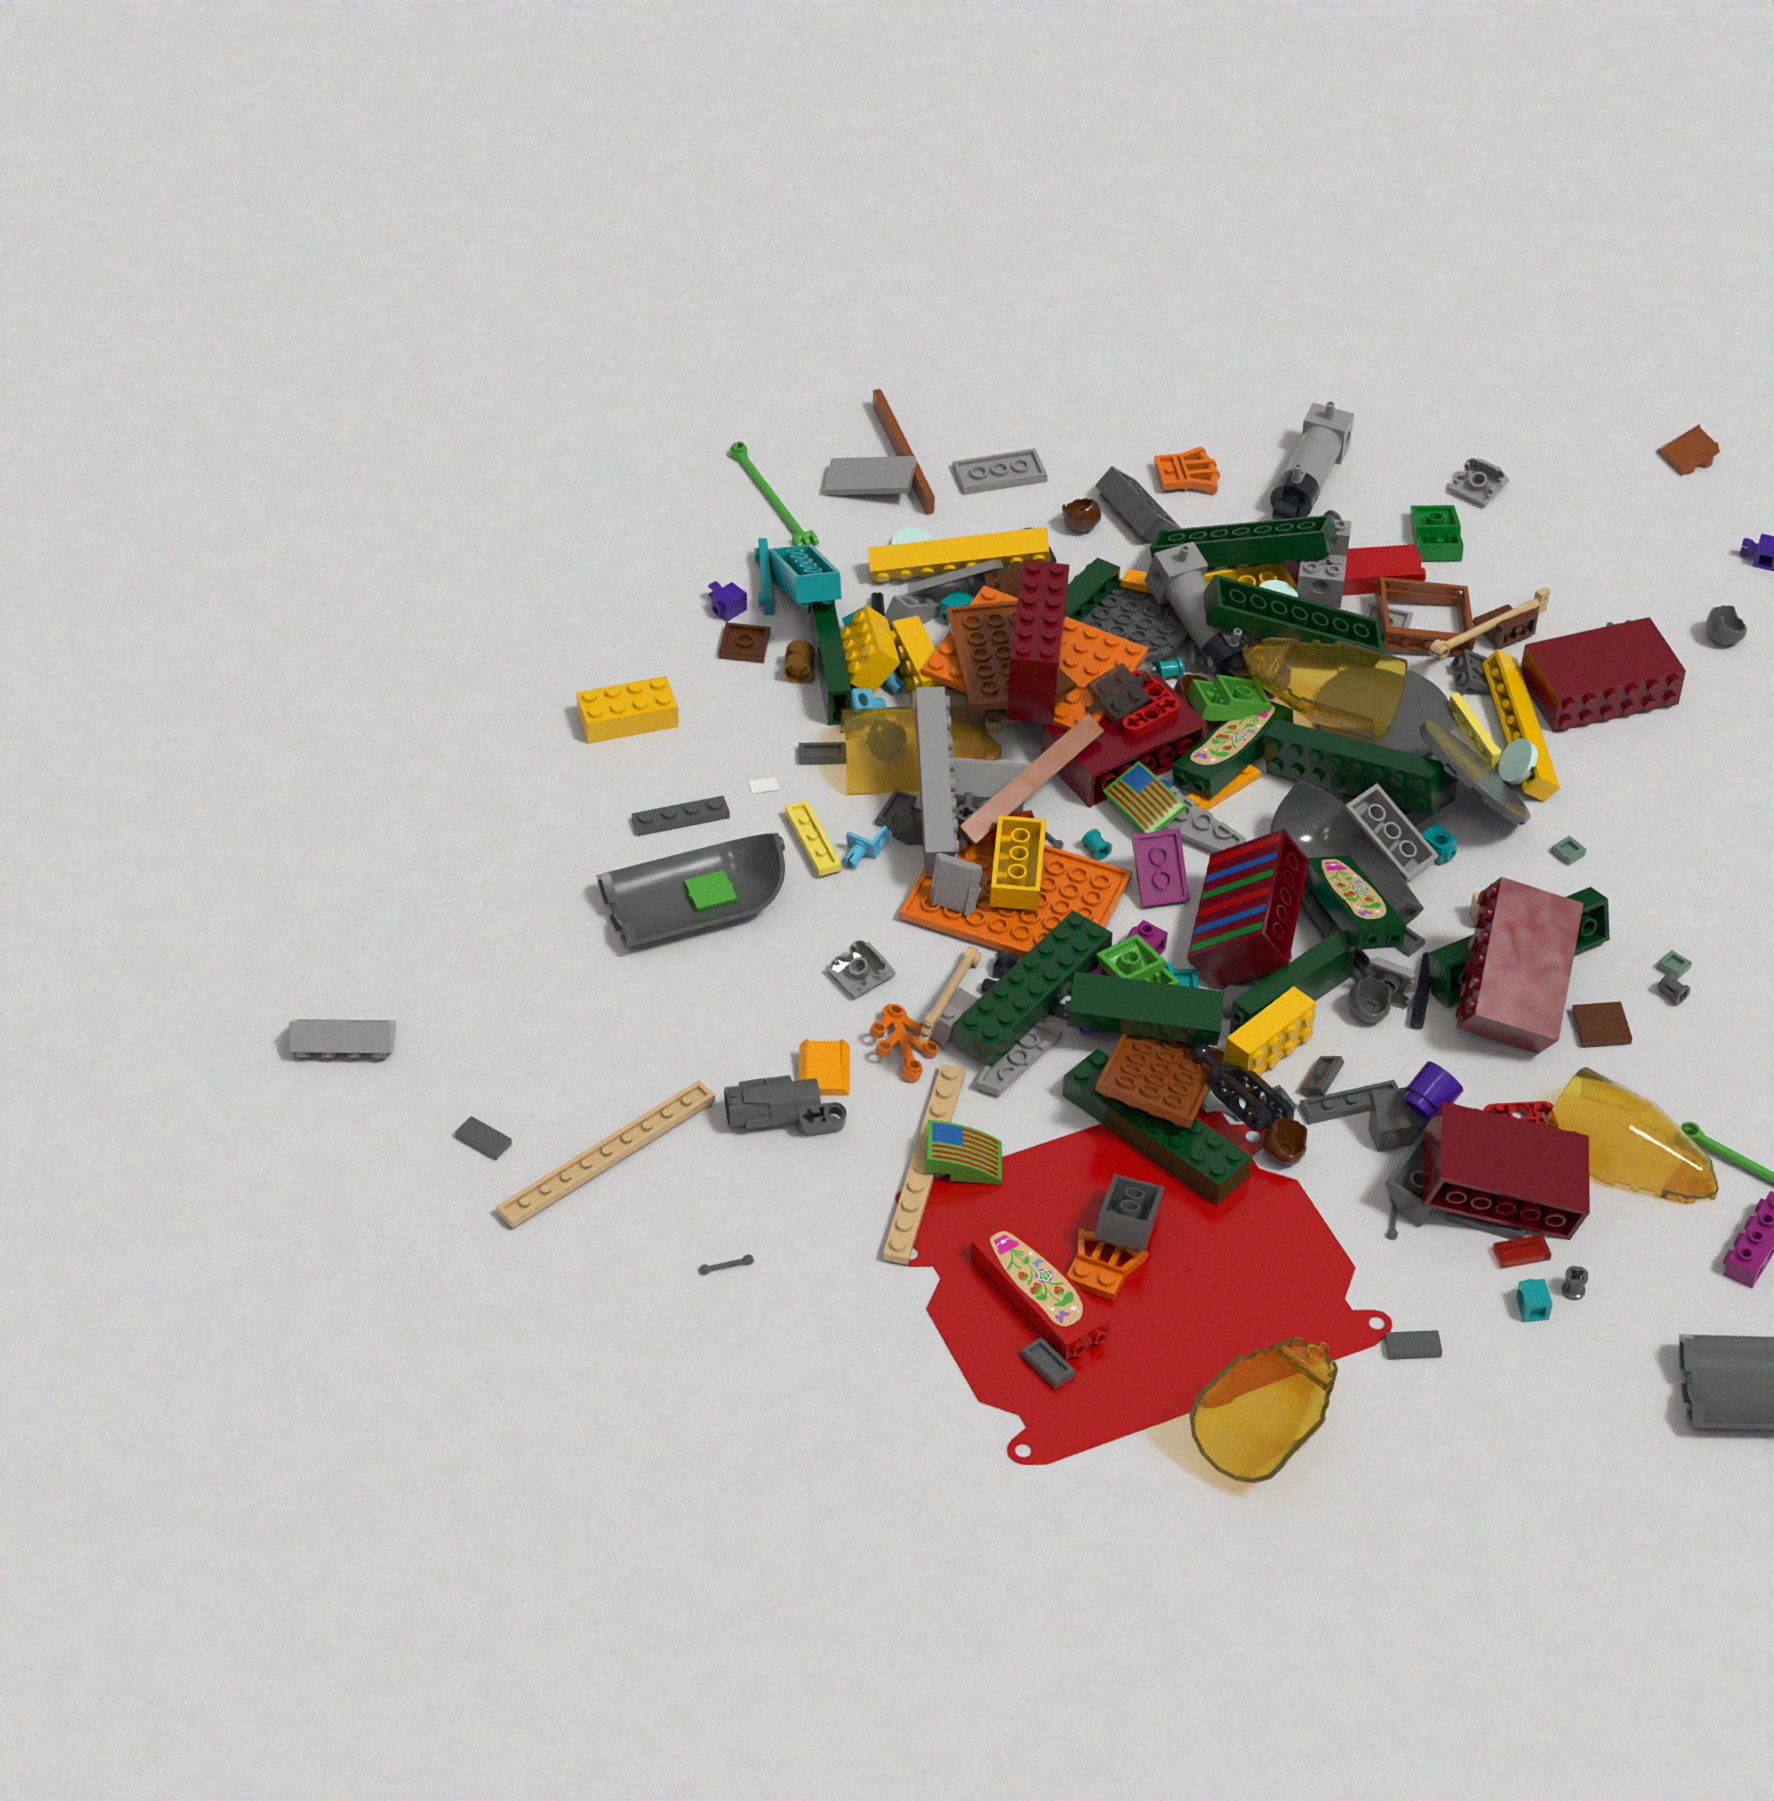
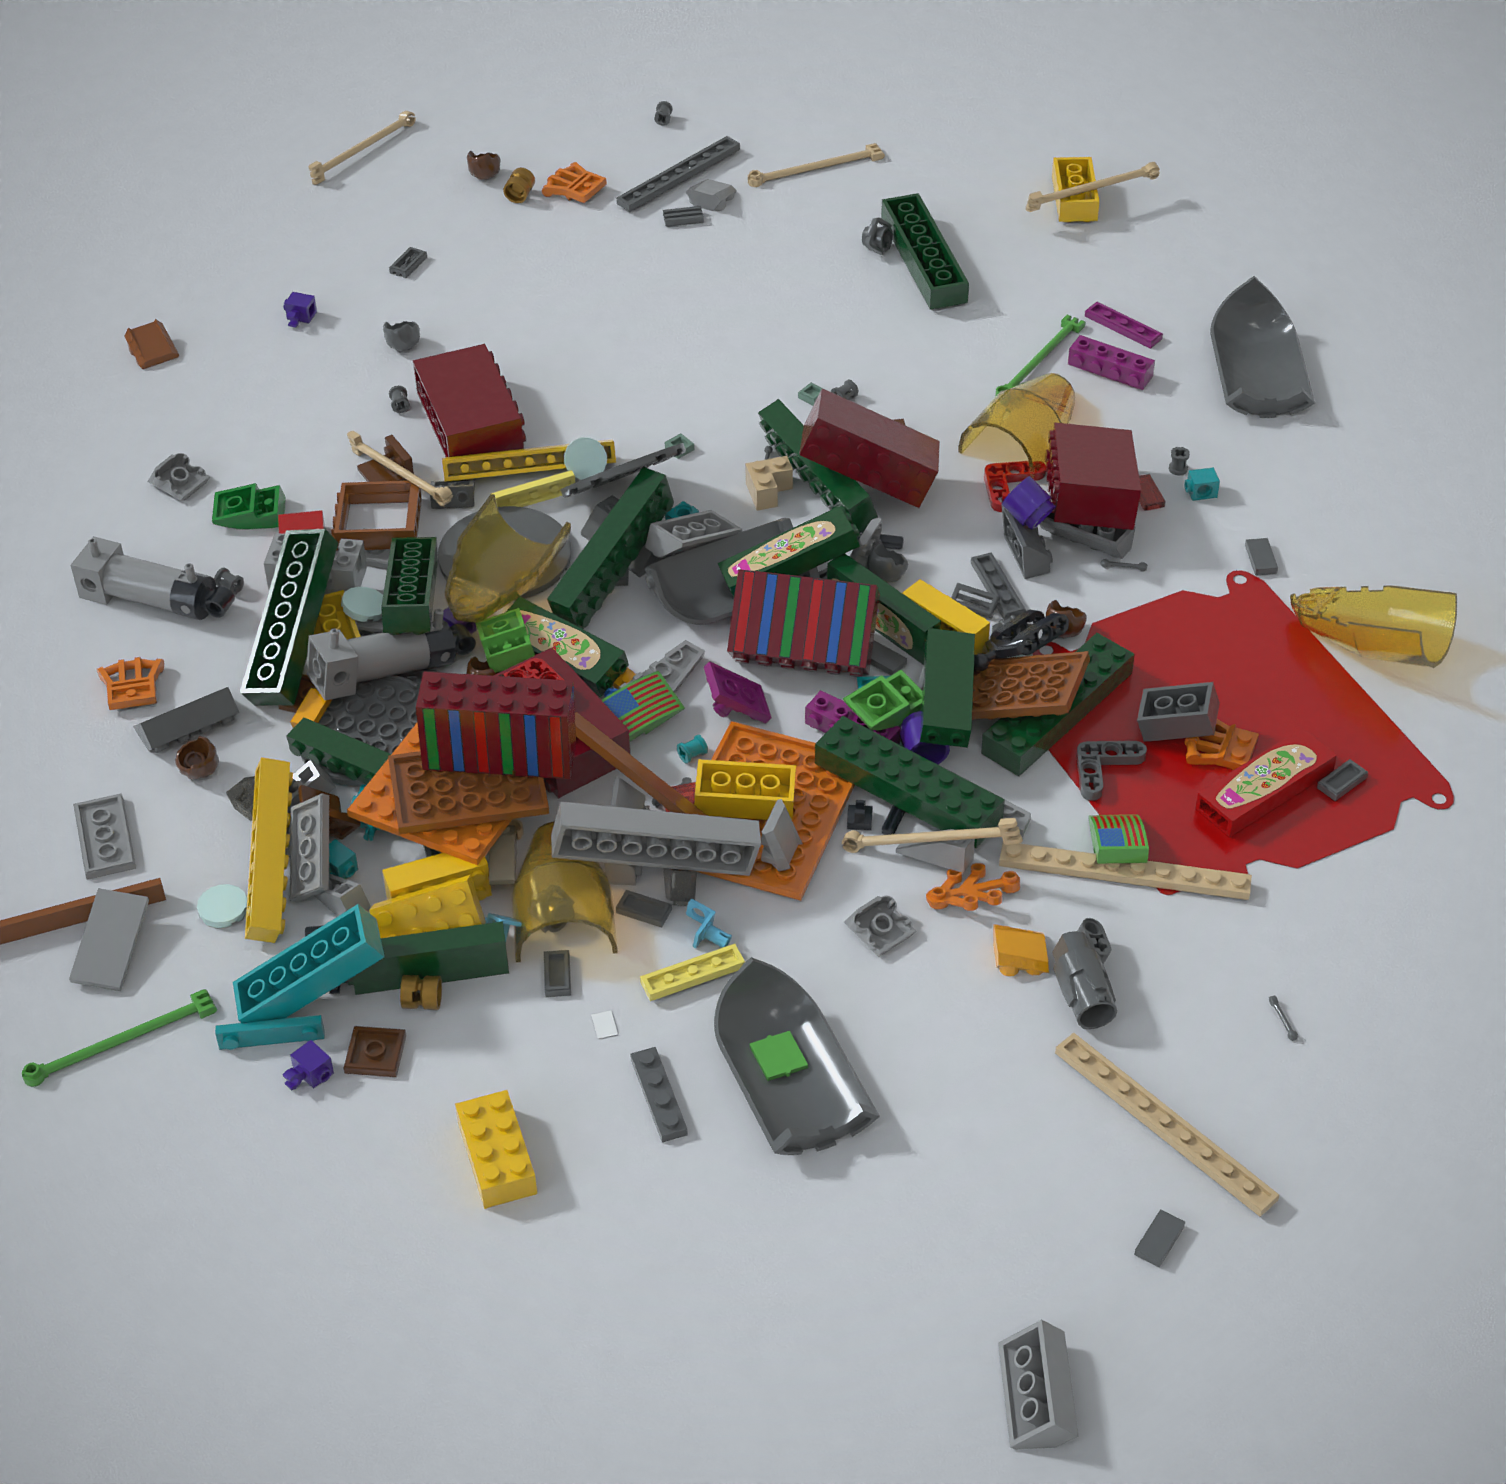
camera: 90 degrees left, 0 degrees up
(1077, 1153) = (1095, 761): none -> dark grey beam

